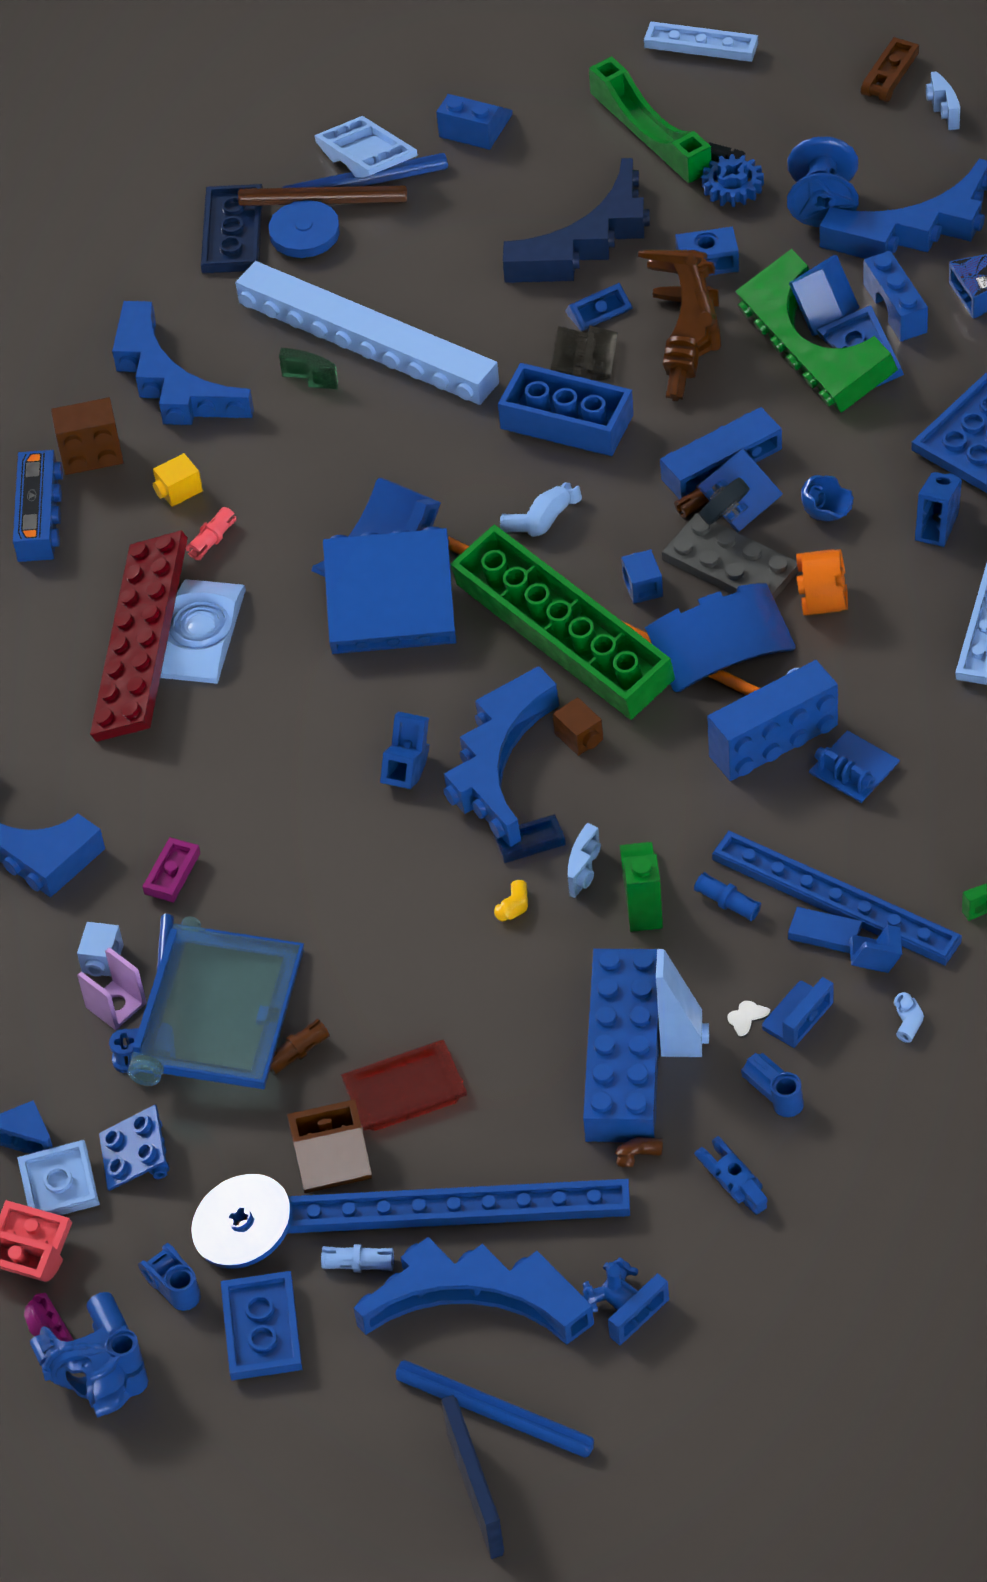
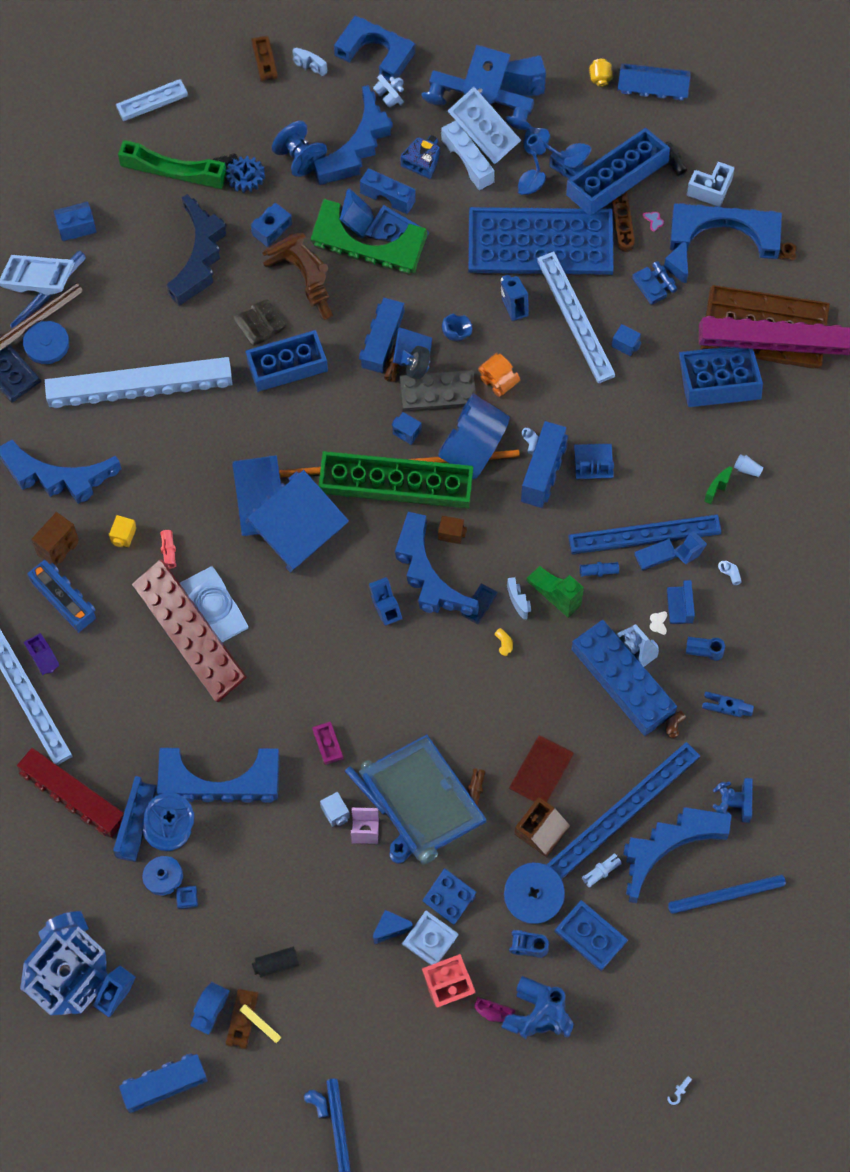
camera: 45 degrees left, 15 degrees up
(303, 364) = (133, 420): clear green slope -> none
(473, 1477) = (755, 933): dark blue tile -> none
(542, 511) = (327, 424): light blue arm -> none
(599, 307) = (242, 290): blue slope -> none

